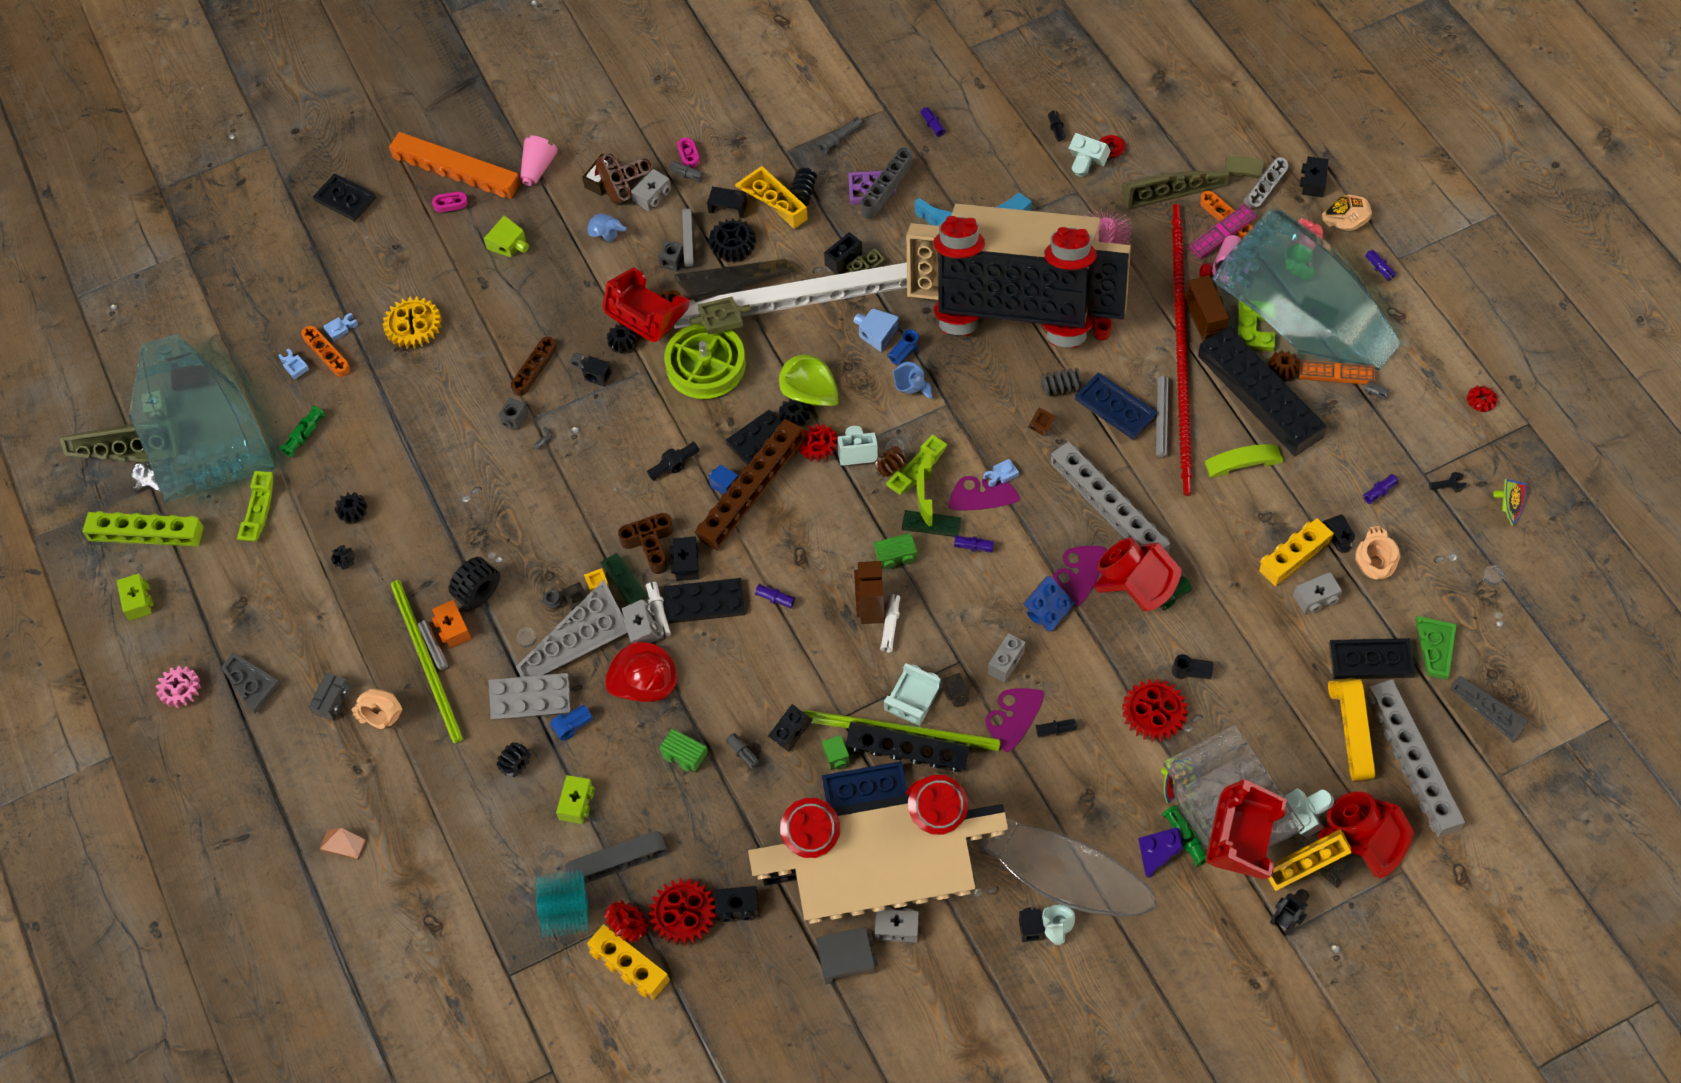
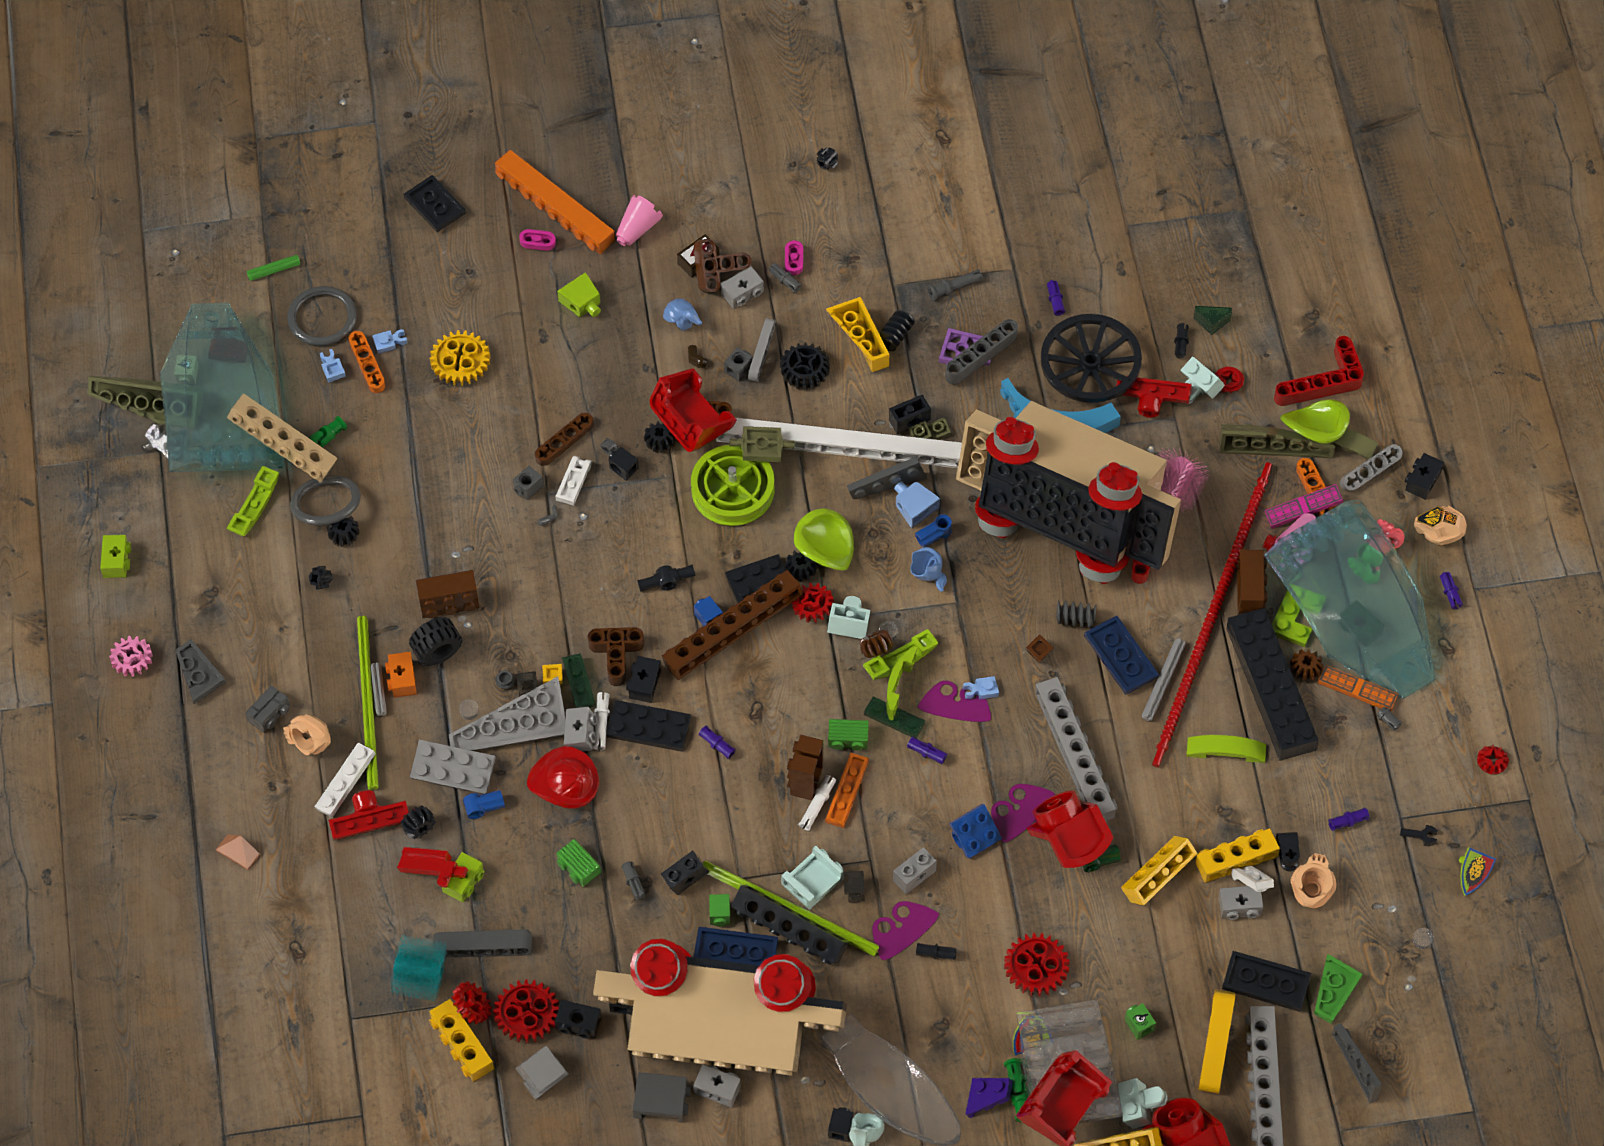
camera: 15 degrees right, 0 degrees up
(110, 528) = (182, 511): lime brick -> none
(210, 293) = (273, 267): none -> bright green axle
(264, 438) = (282, 437): none -> tan brick
(289, 338) = (322, 341): none -> dark grey wedge
(333, 501) = (329, 519): none -> dark grey wedge
(427, 741) = (345, 780): none -> white plate
(461, 769) = (367, 816): none -> red plate
(471, 535) = (447, 594): none -> reddish brown piece
(540, 795) = (430, 863): none -> red piece
(555, 399) = (573, 480): none -> white plate
(630, 262) = (696, 359): none -> dark brown arm
(687, 63) = (827, 158): none -> black gear
(718, 281) = (772, 405): clear smoke wing -> none
(718, 968) = (541, 1072): none -> light grey plate
(728, 199) = (814, 321): black panel -> none
(860, 303) = (907, 472): none -> dark grey wing
(913, 603) = (847, 790): none -> orange tile
(985, 164) = (1091, 356): none -> black wheel
(1051, 175) = (1155, 392): none -> red plate
(1075, 99) = (1212, 317): none -> clear green slope
(1193, 668) = (1090, 937): black piece -> none
(1209, 153) = (1320, 421): none -> lime piece
(1212, 116) = (1325, 380): none -> red beam
(1232, 587) = (1159, 870): none -> yellow brick
(1272, 732) = (1140, 1021): none -> bright green brick
(1322, 567) = (1253, 878): none -> white plate

